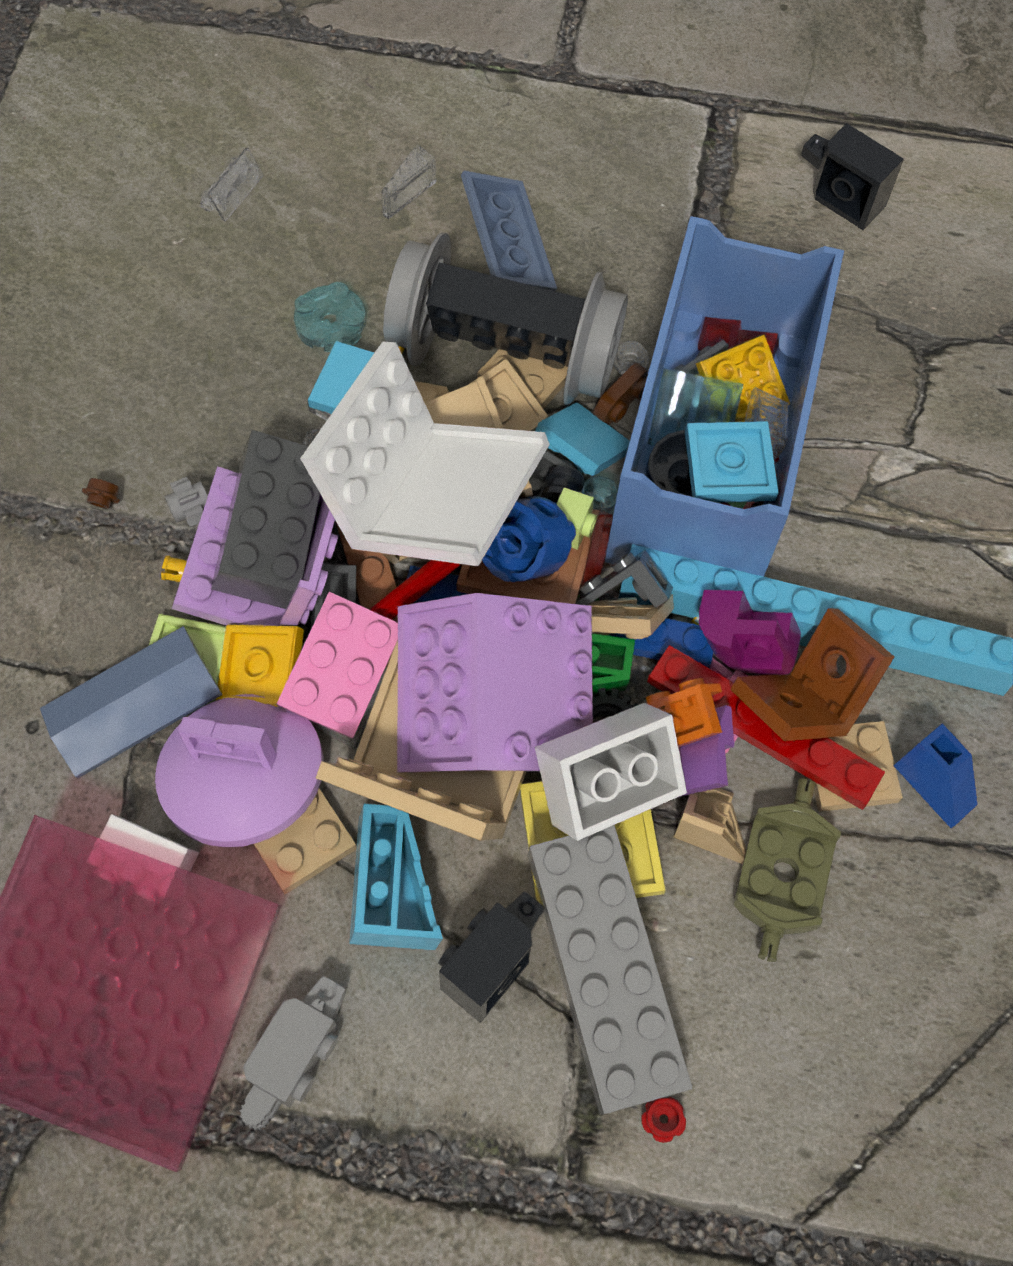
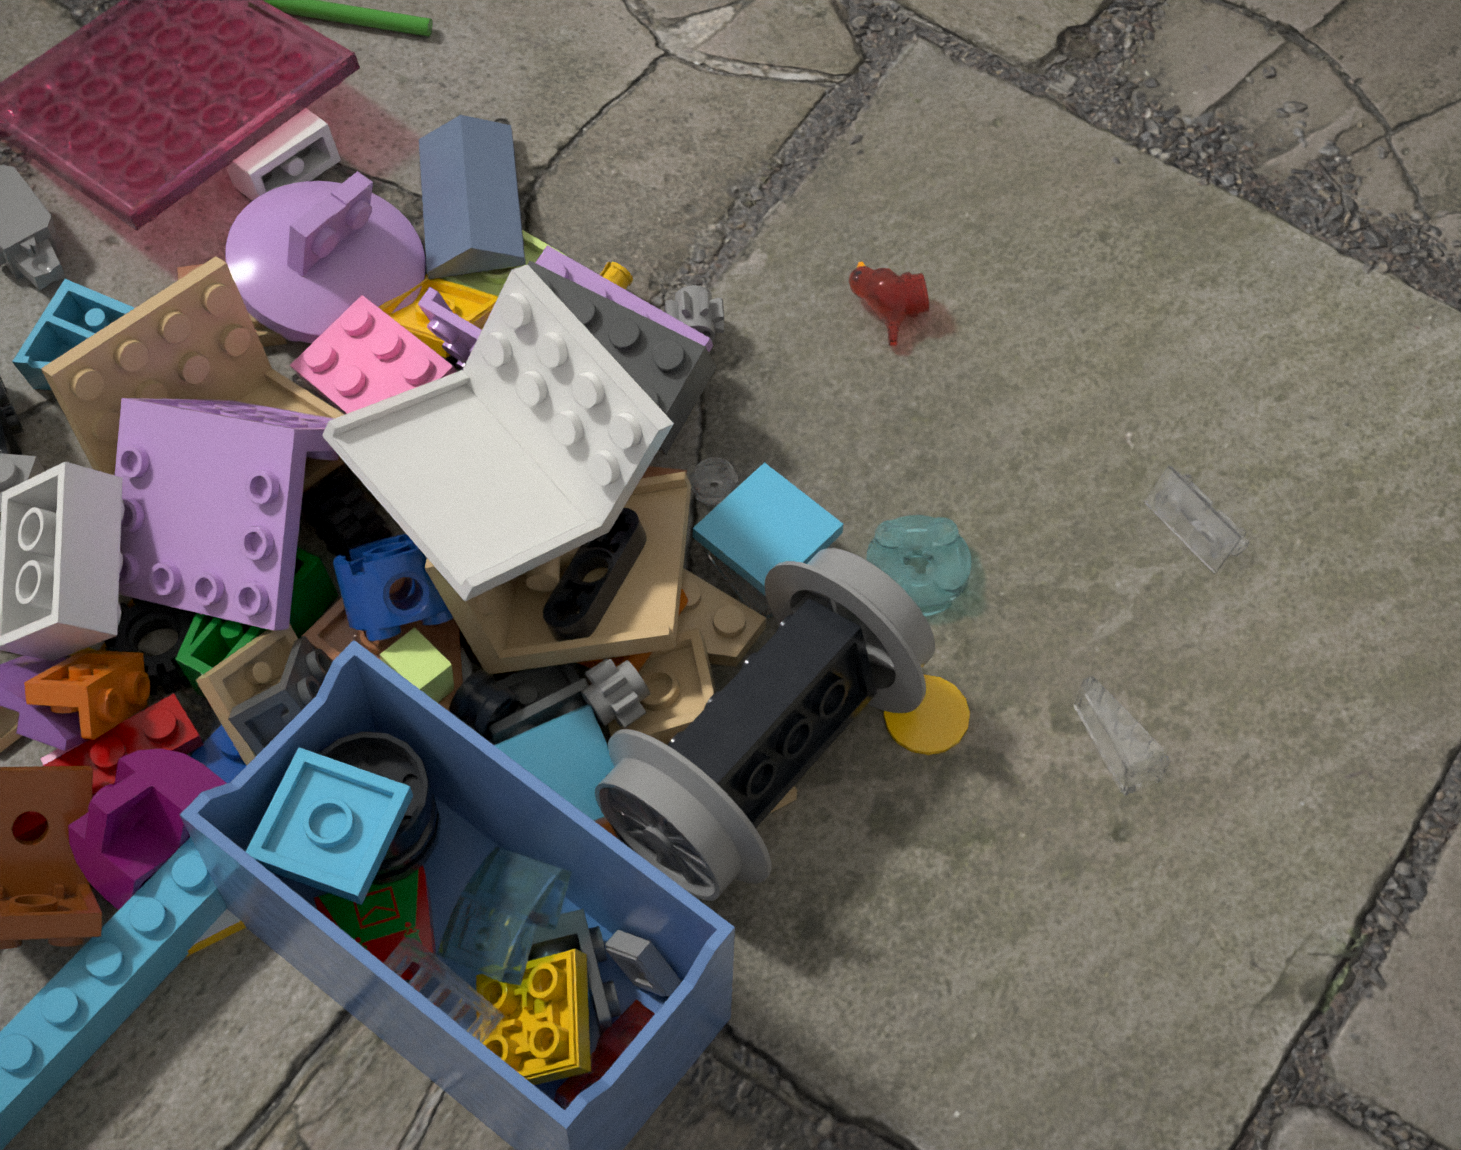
camera: 115 degrees right, 5 degrees down
(101, 493) = (756, 245): reddish brown plate -> none
(119, 392) = (890, 295): none -> clear red animal
(508, 230) = (971, 837): sand blue slope -> none
(522, 412) = (615, 692): none -> light grey gear
(679, 344) = (642, 963): none -> light grey tile

